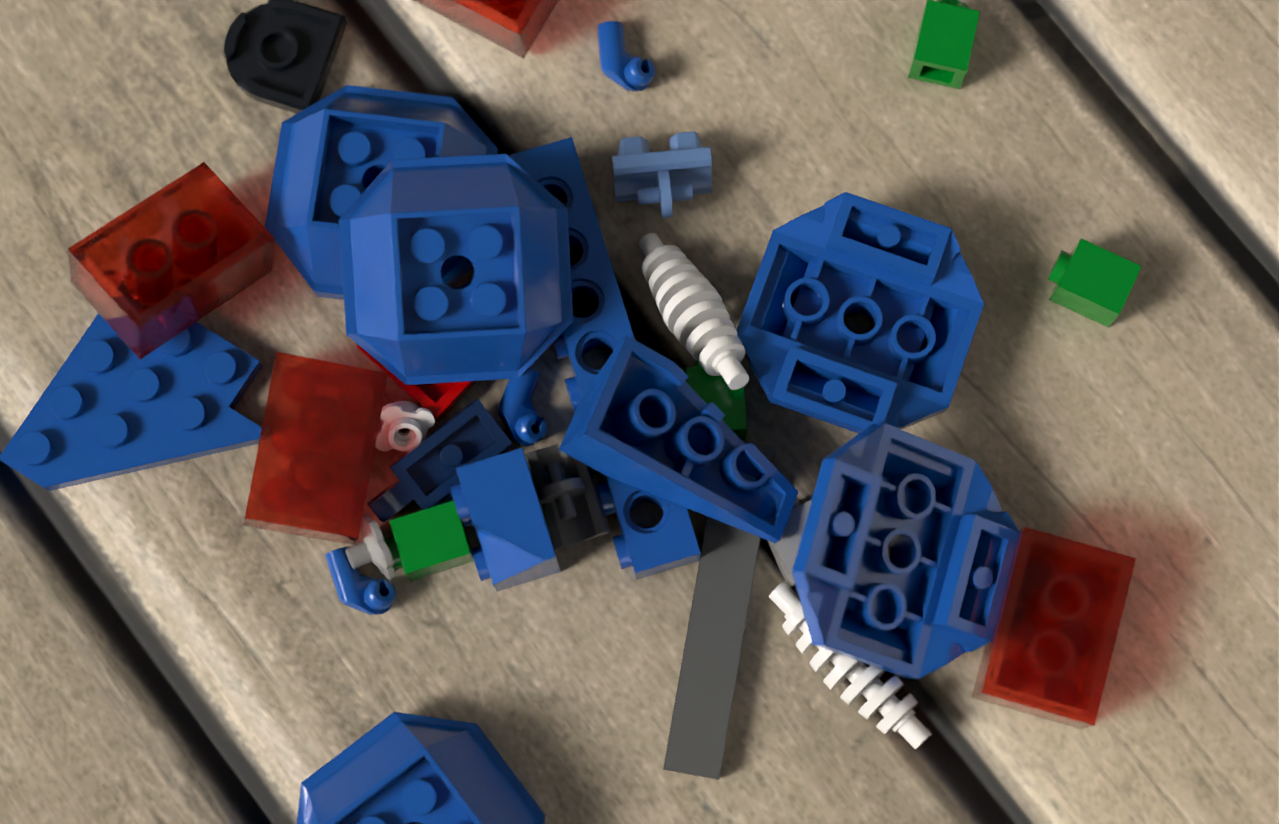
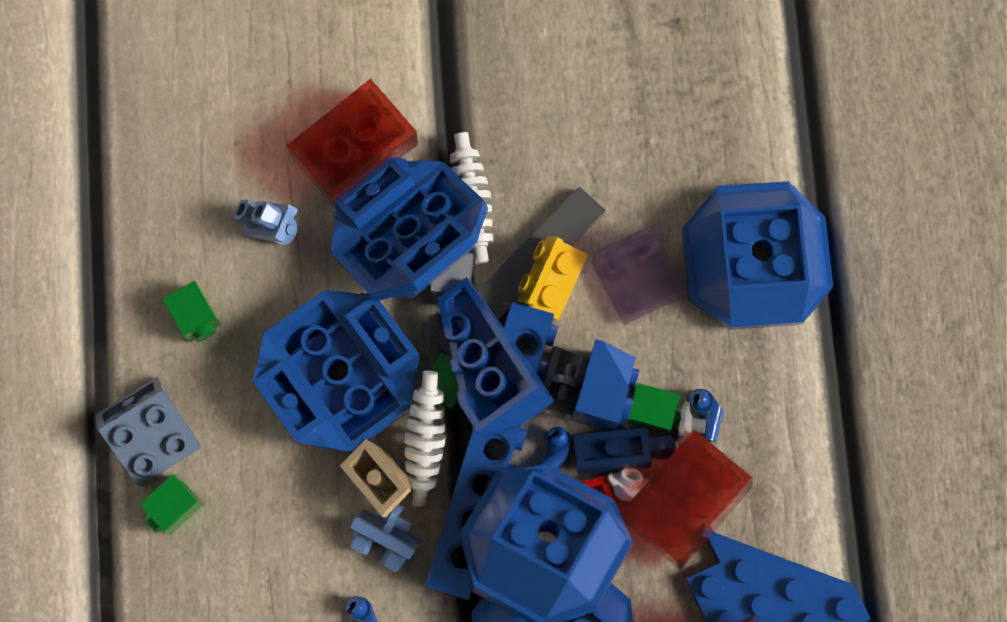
camera: 150 degrees left, 0 degrees up
(559, 707) = (638, 274): none -> clear purple bracket
(673, 626) = (551, 276): none -> yellow bracket
(715, 223) = (377, 476): none -> tan slope
(1041, 108) = (146, 432): none -> sand blue bracket
(1087, 454) = (267, 221): none -> medium blue hips

